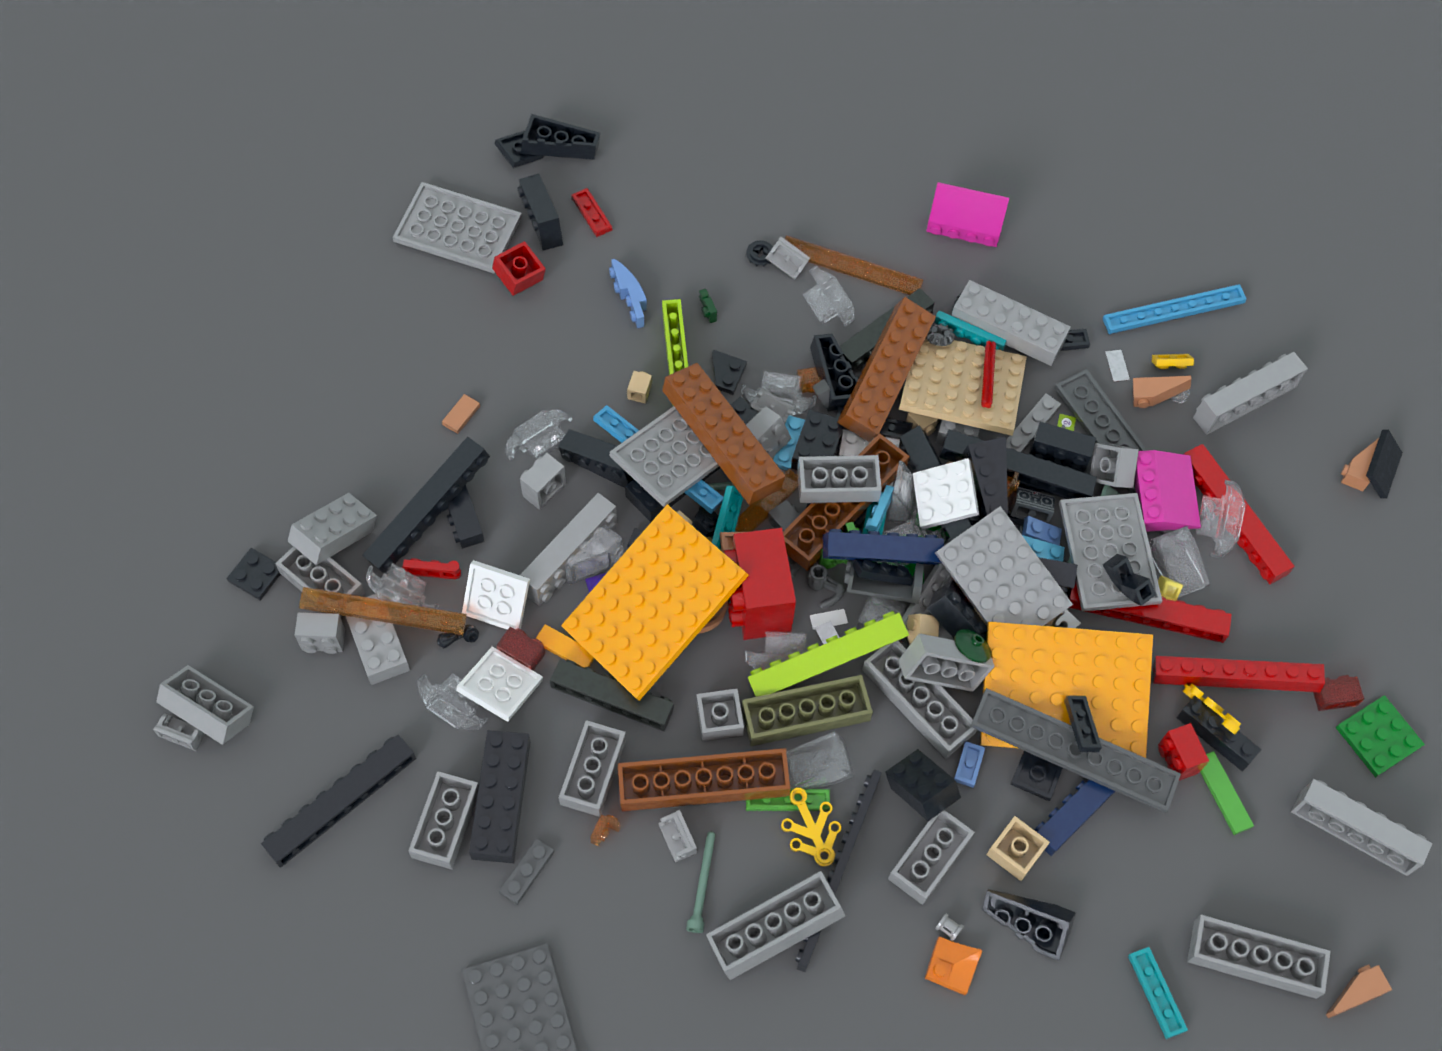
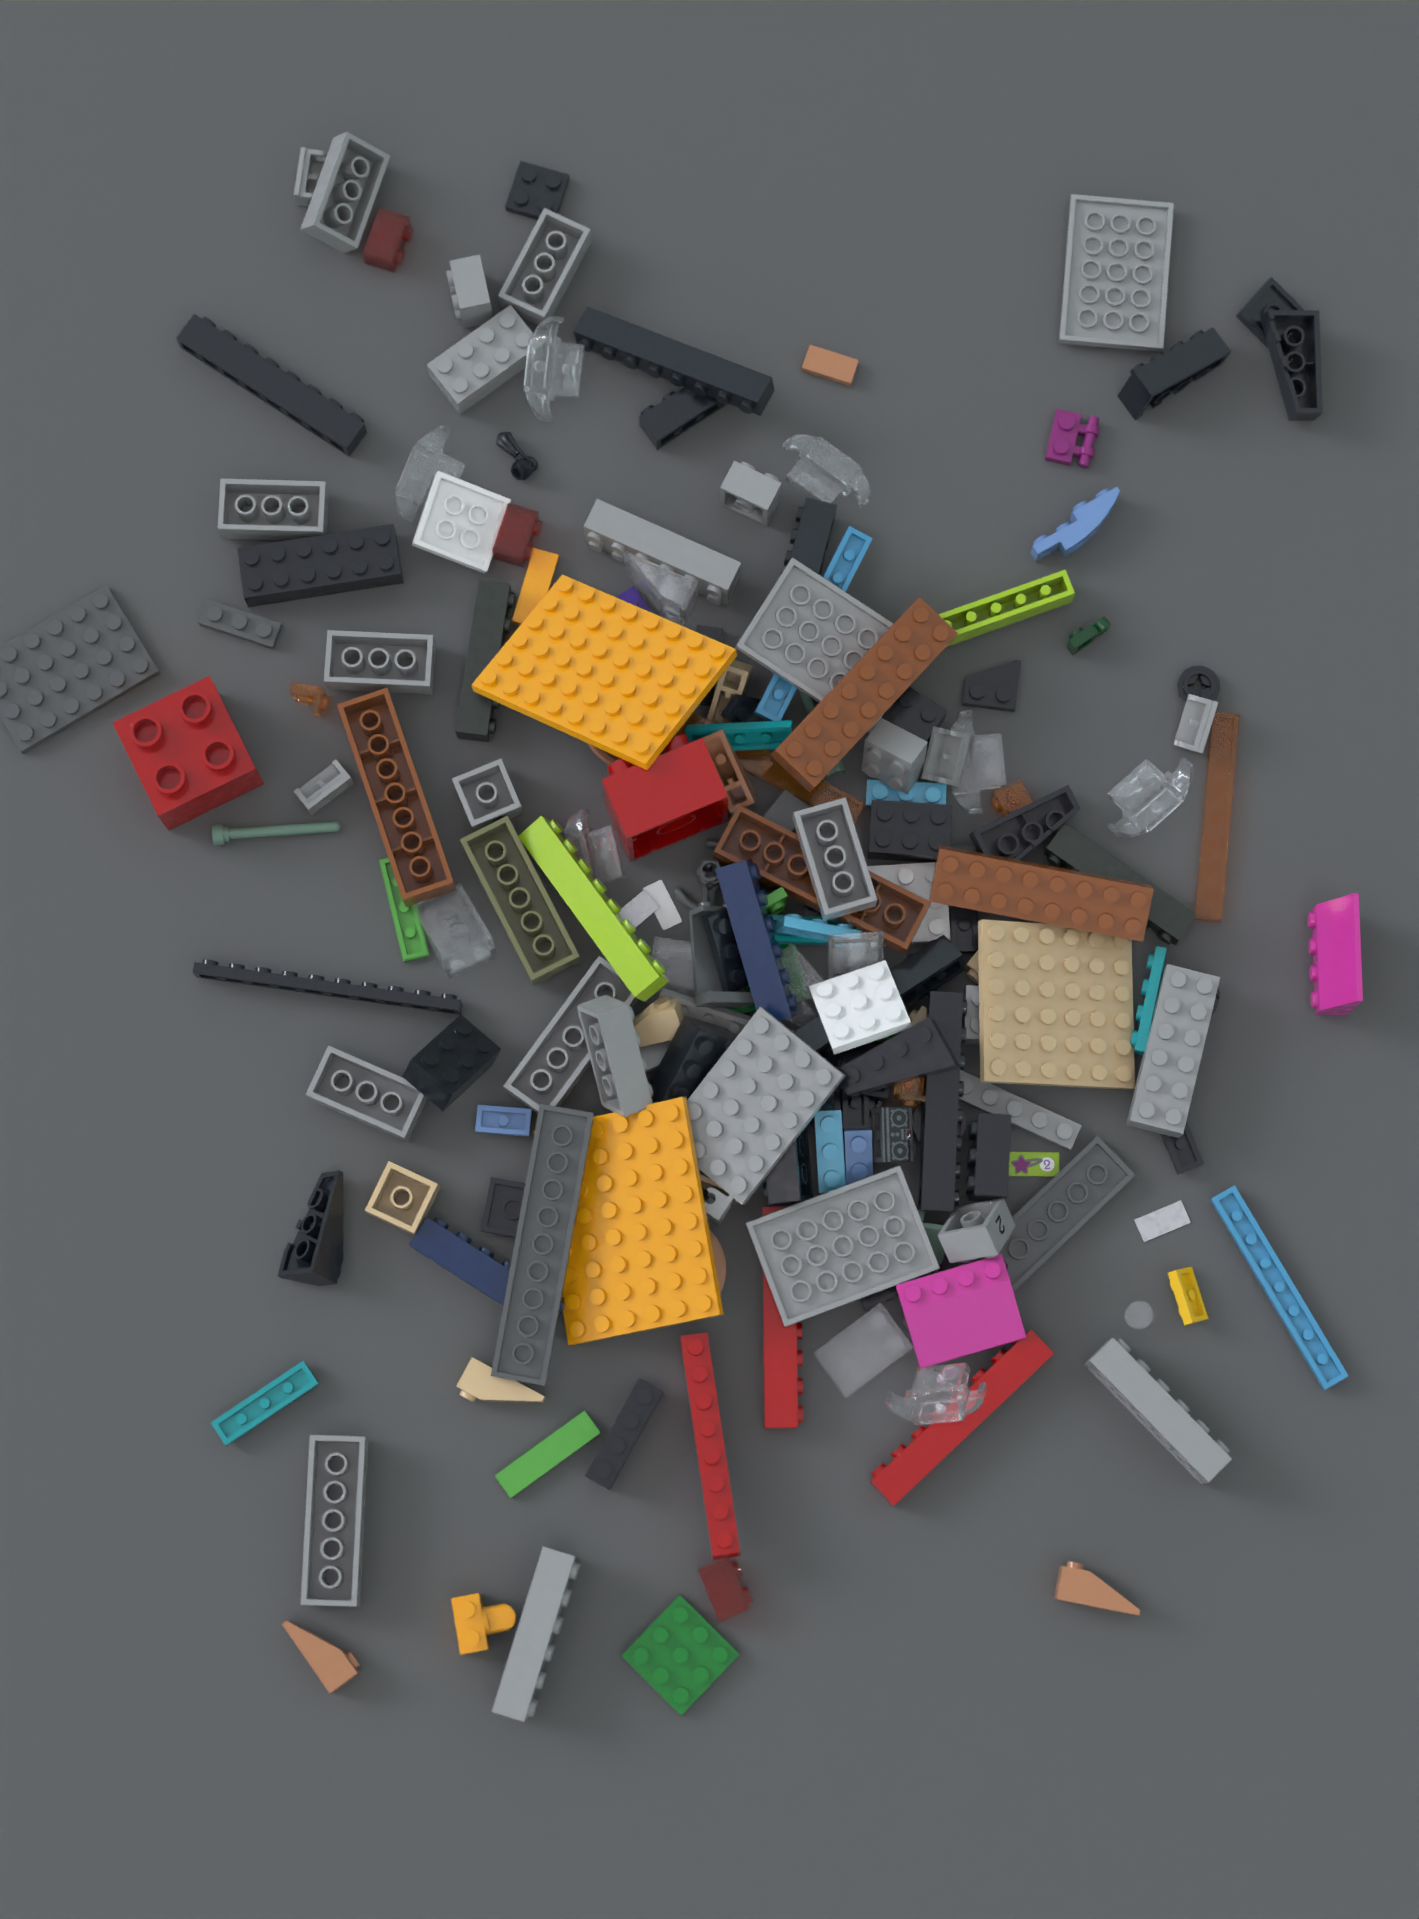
camera: 80 degrees right, 15 degrees up
(253, 687) = (387, 240): none -> clear red brick
(332, 528) = (608, 258): light grey brick -> none
(382, 611) = (512, 354): clear orange tile -> none
(433, 568) = (597, 397): red plate -> none
(495, 596) = (570, 481): white plate -> none
(518, 268) = (1066, 369): red brick -> none
(563, 287) = (1063, 438): none -> magenta plate
(591, 212) = (1198, 442): red tile -> none
(628, 928) = (188, 753): none -> red brick
(639, 386) = (933, 578): tan brick -> none
(775, 925) = (231, 923): light grey brick -> none
(813, 830) = (369, 945): yellow plant -> none
(822, 390) = (986, 816): dark grey slope -> none
(934, 335) = (1116, 955): dark grey gear -> none
(949, 927) = (287, 1135): light grey bush -> none
(952, 965) = (242, 1148): orange plate -> none
(972, 646) = (633, 1078): dark green dish -> none
(988, 374) = (1072, 1033): red axle -> none
(1082, 724) = (574, 1244): black plate -> none
(1133, 586) = (796, 1273): black brick -> none
(1155, 390) = (1125, 1275): nougat slope -> none
(1165, 825) = (479, 1384): none -> tan slope
(1169, 588) = (818, 1339): light yellow slope -> none
(1183, 751) = (580, 1387): red brick -> none
(1229, 722) = (672, 1394): yellow plant -> none
(1344, 870) = (477, 1622): none -> light orange brick
(1384, 463) = (1096, 1619): black tile -> none

